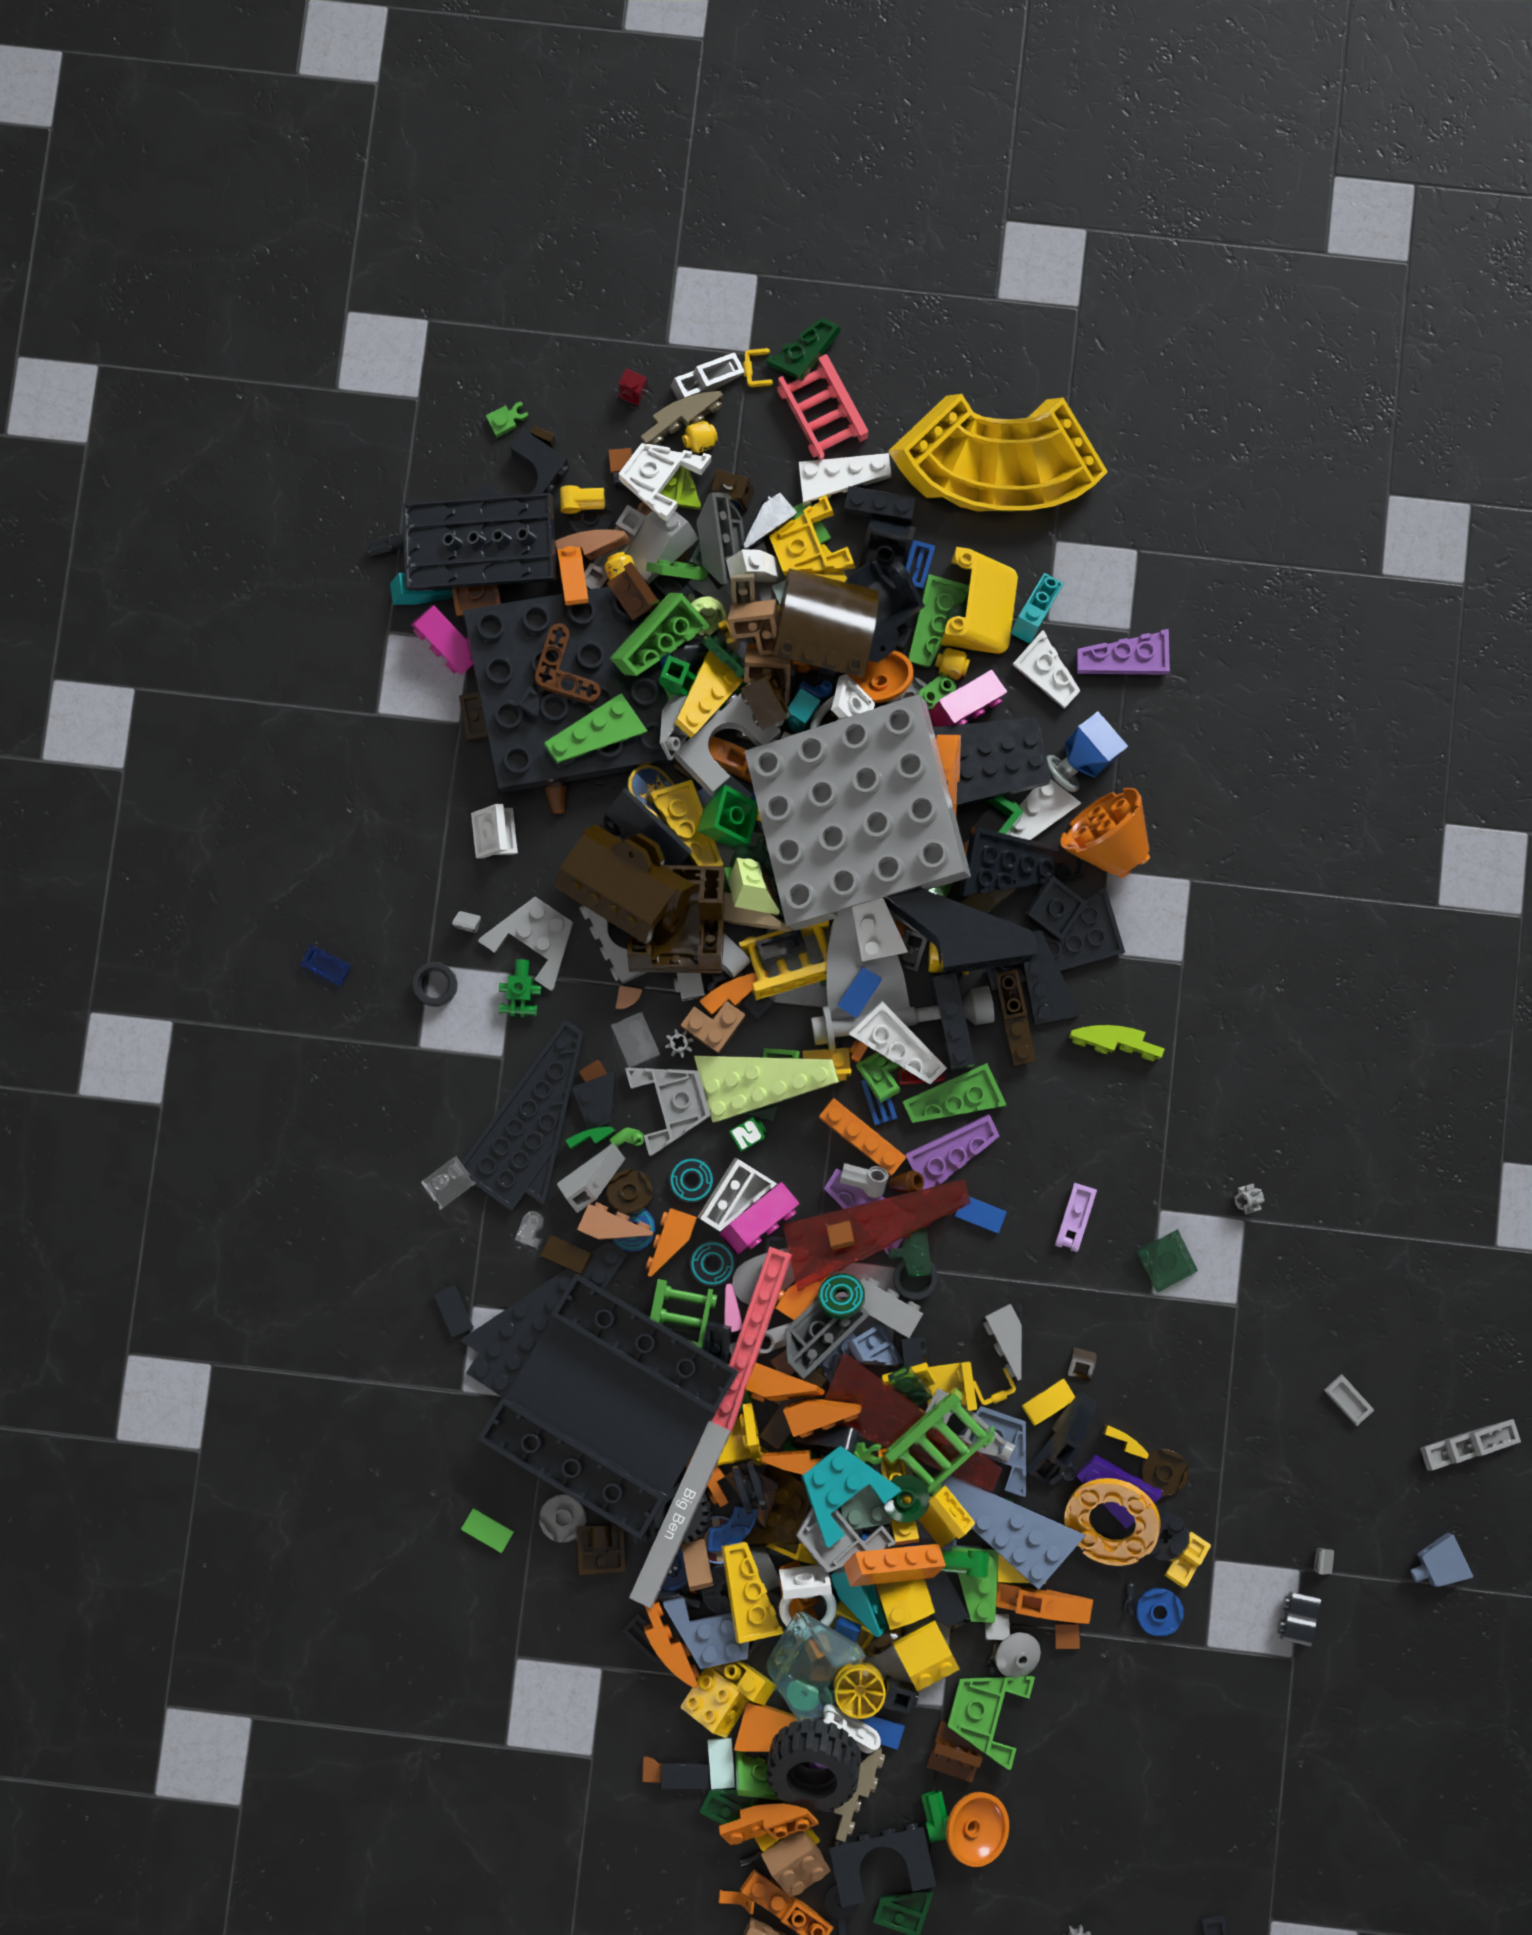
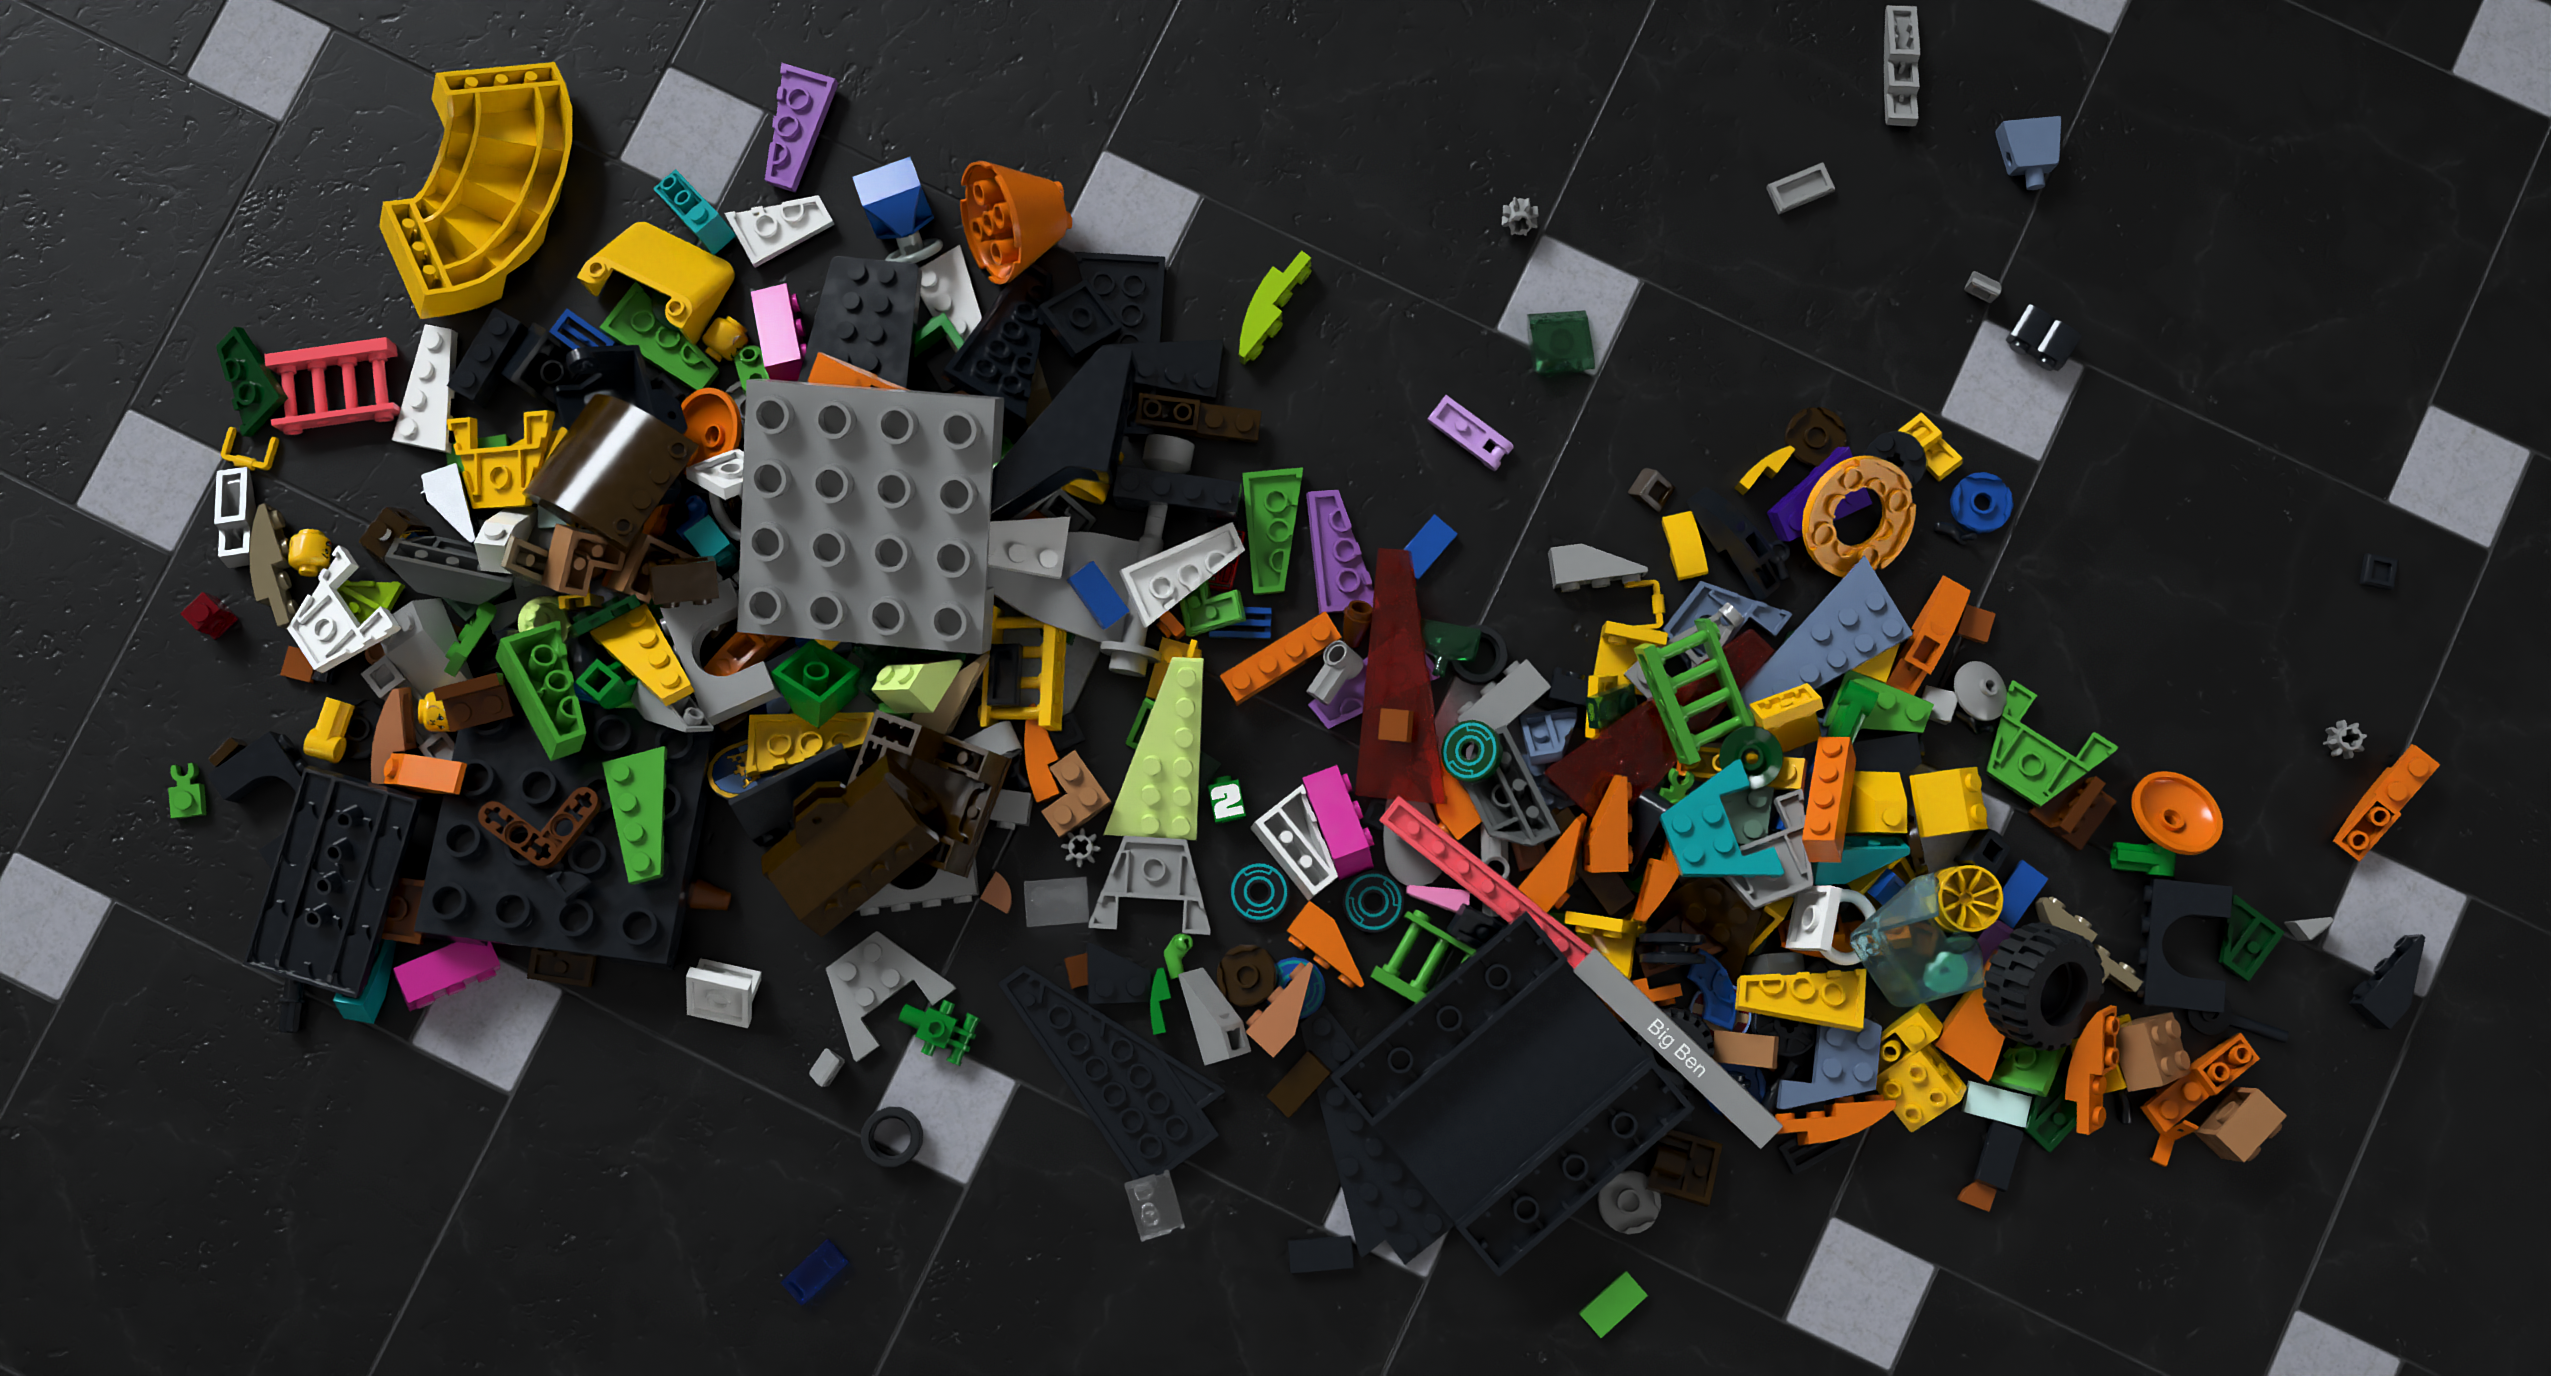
camera: 75 degrees left, 0 degrees up
(529, 1227) = (1244, 1116): clear leg -> none
(864, 1735) = (2019, 912): white plate -> none

